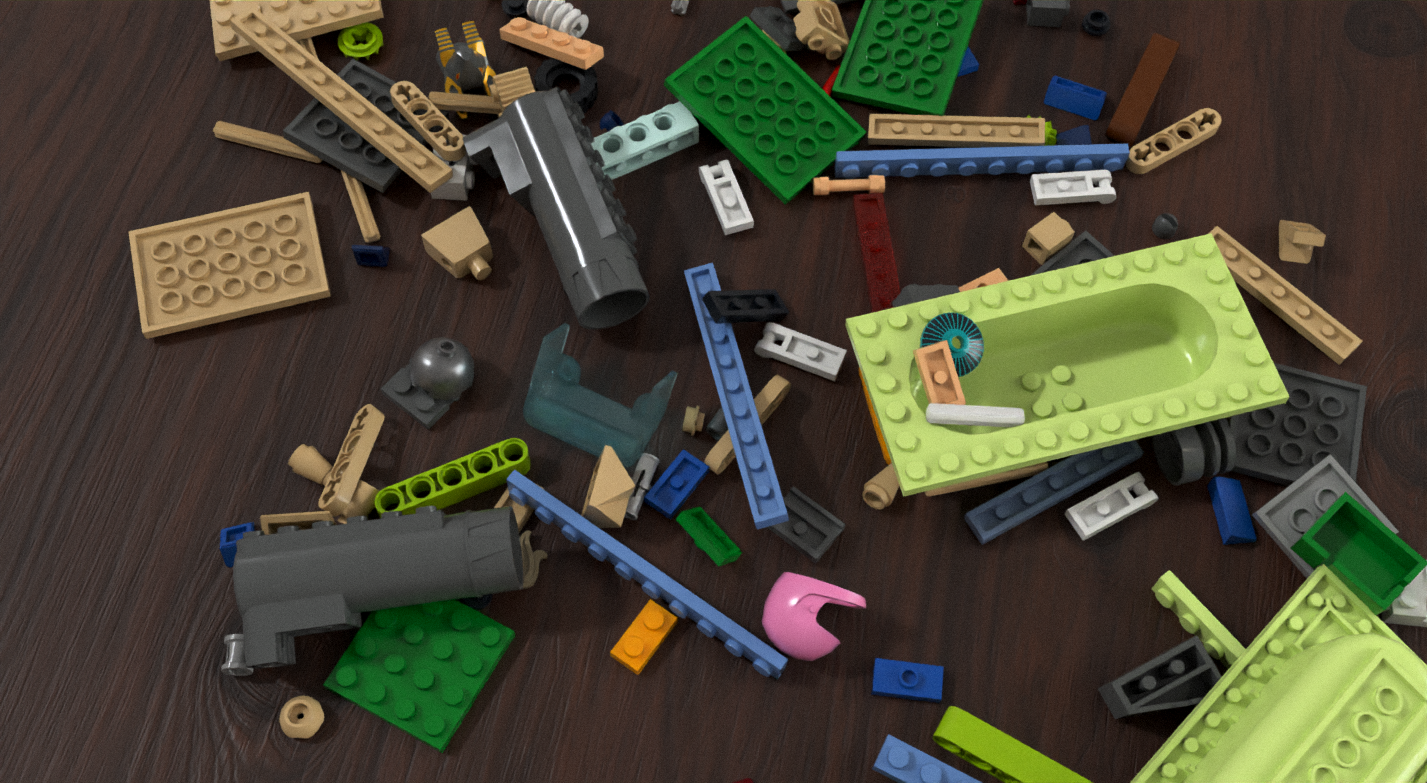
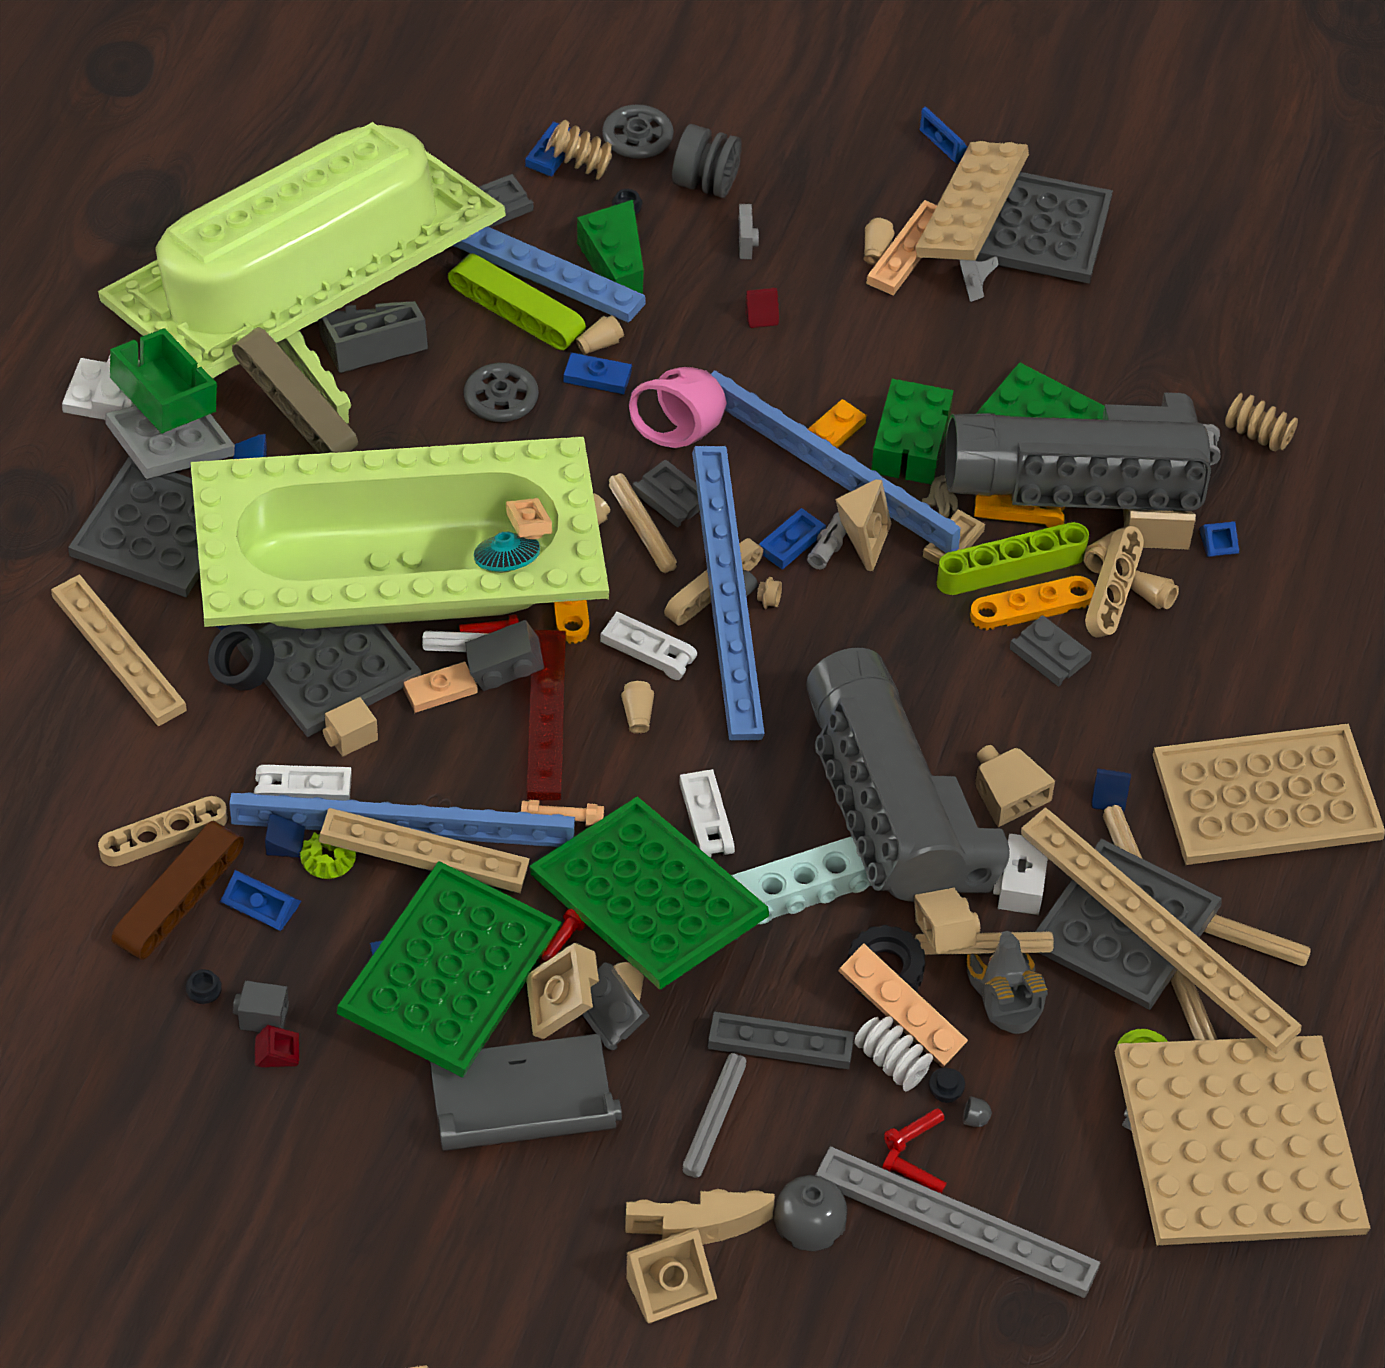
camera: 175 degrees left, 10 degrees down
(169, 687) = (1260, 423): none -> tan piece
(303, 727) = (1144, 395): tan plate -> none
(424, 122) = (1049, 904): tan beam -> none
(435, 444) = (1032, 602): none -> light orange plate
(442, 368) = (1027, 654): flat silver cylinder -> none
(558, 628) = (915, 425): none -> green piece
(585, 417) = (863, 603): clear light blue windscreen -> none
(610, 121) = (832, 910): dark blue hinge -> none
(645, 22) = (781, 1040): none -> dark grey plate
(709, 536) = (765, 490): green plate -> none
(745, 306) = (703, 670): black plate -> none
(801, 290) = (638, 705): none -> tan cone
(828, 490) = (642, 523): none -> tan axle
(915, 726) = (600, 335): none -> tan cone
(974, 415) = (501, 486): white axle -> none
(1015, 617) = (500, 371): none -> dark grey plate
(1165, 226) = (204, 740): dark grey hinge -> none
(1220, 568) = (293, 393): none -> dark tan beam
(1298, 240) = (68, 697): tan slope -> none

